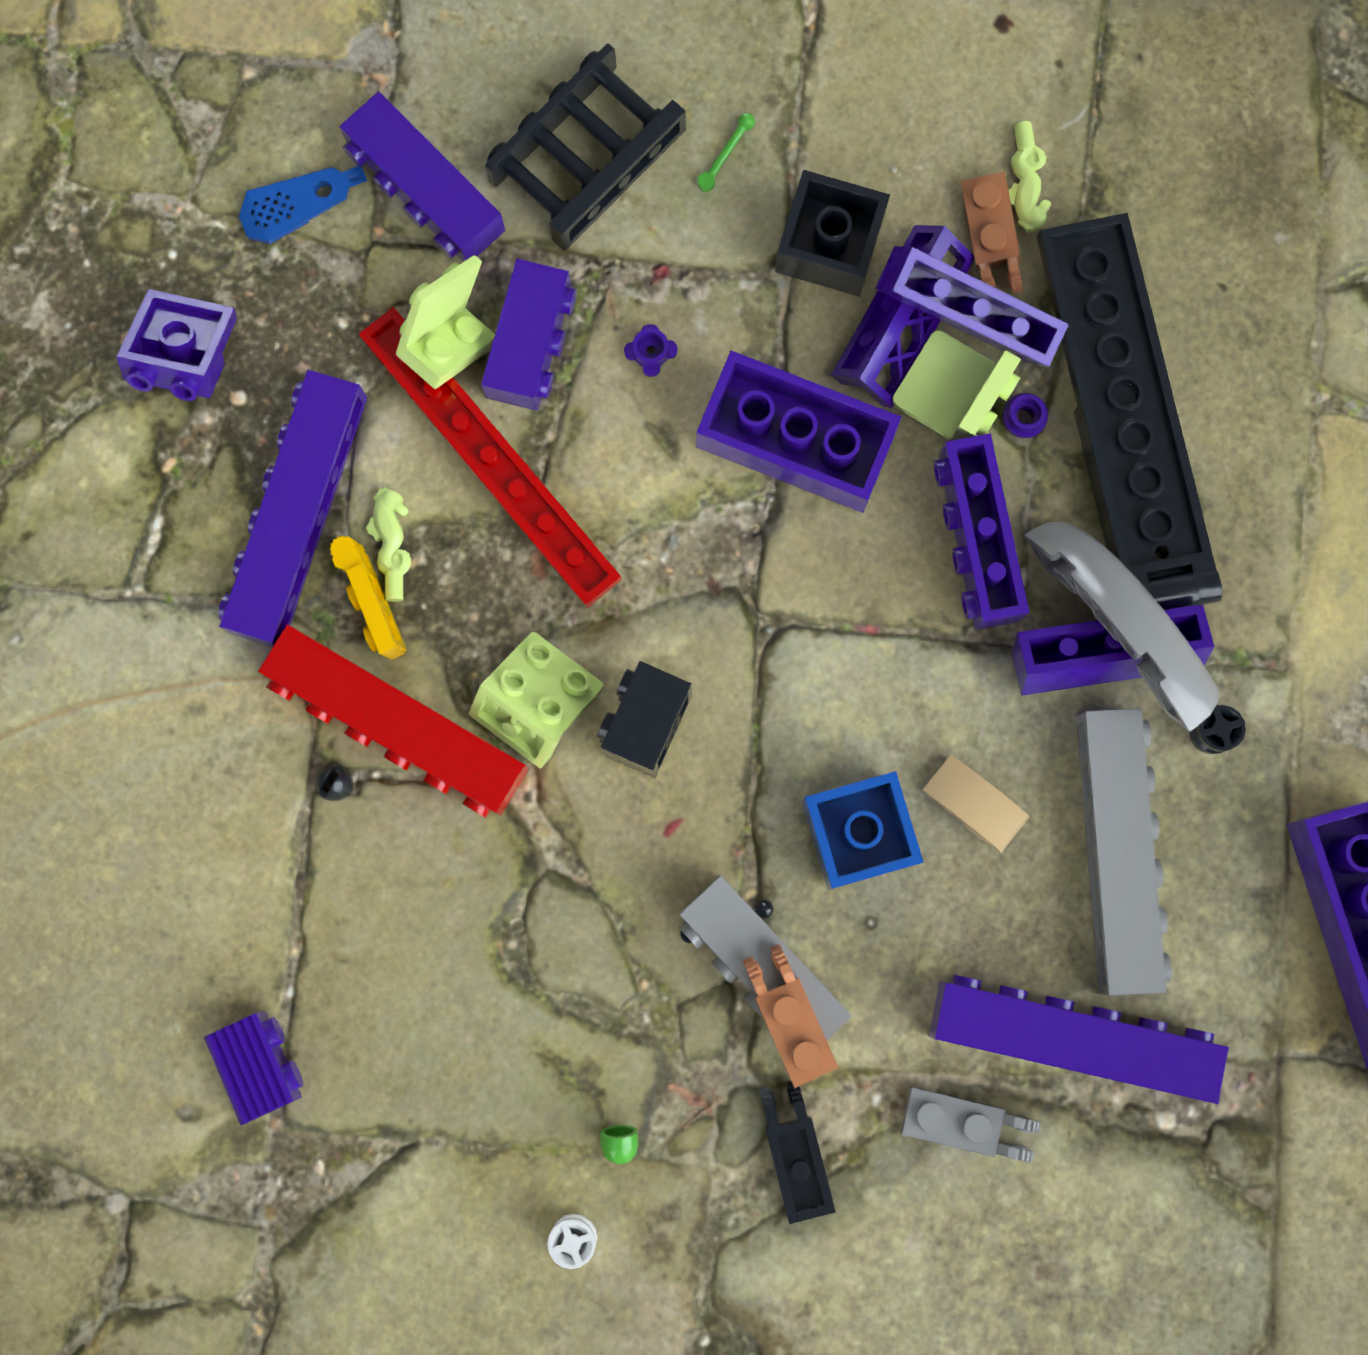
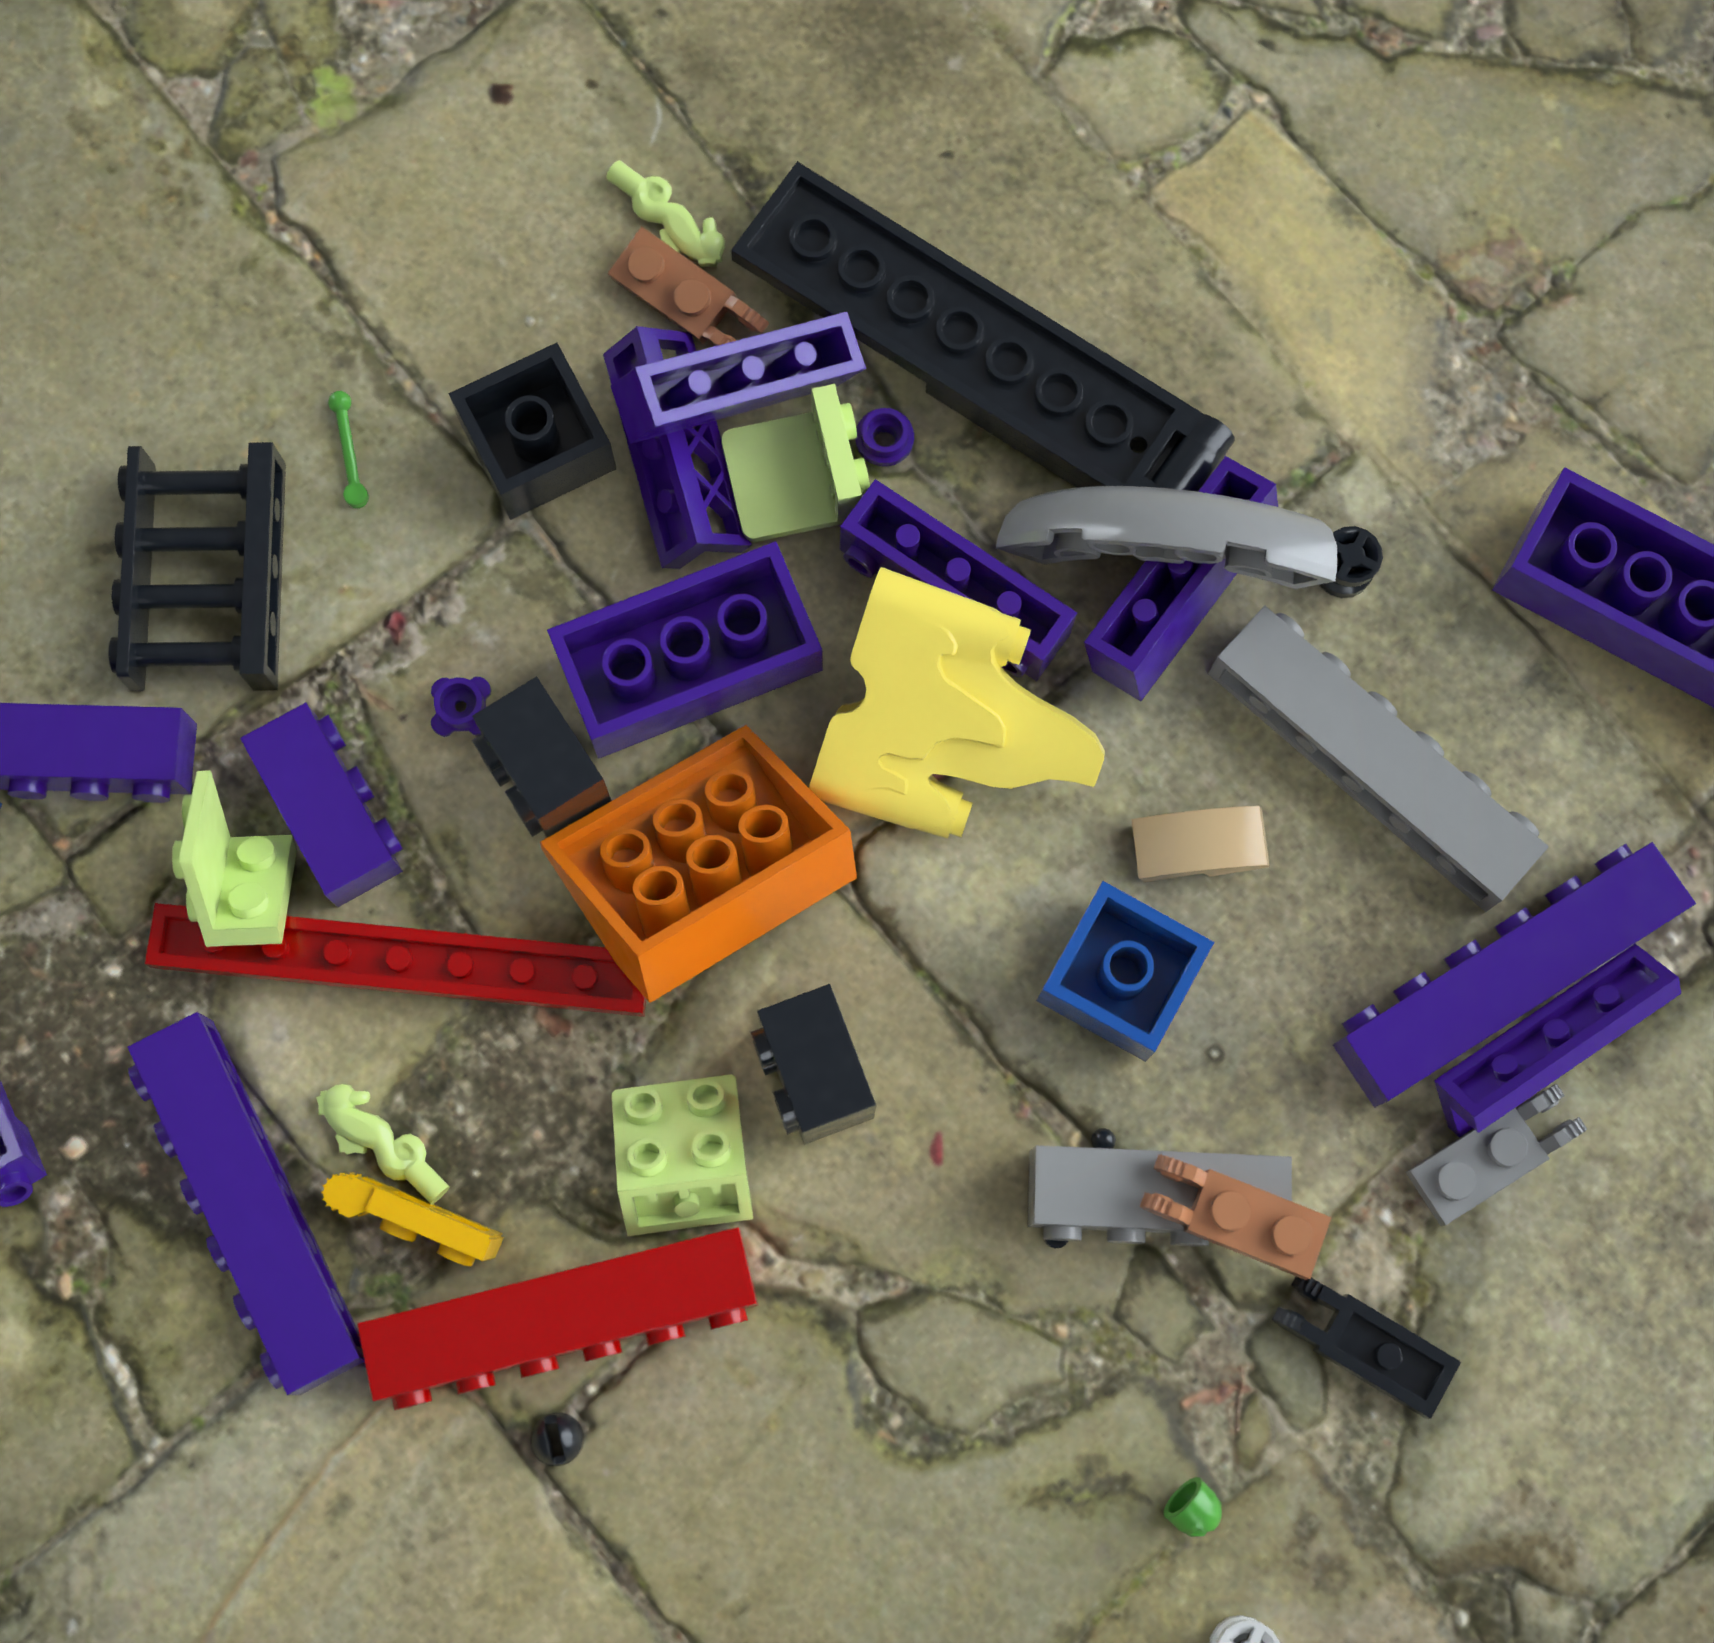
camera: 50 degrees left, 5 degrees down
(660, 420) = (537, 751): none -> black brick
(695, 553) = (701, 861): none -> orange slope
(904, 595) = (942, 709): none -> light yellow rock
(1062, 1097) = (1554, 1039): none -> dark purple fence

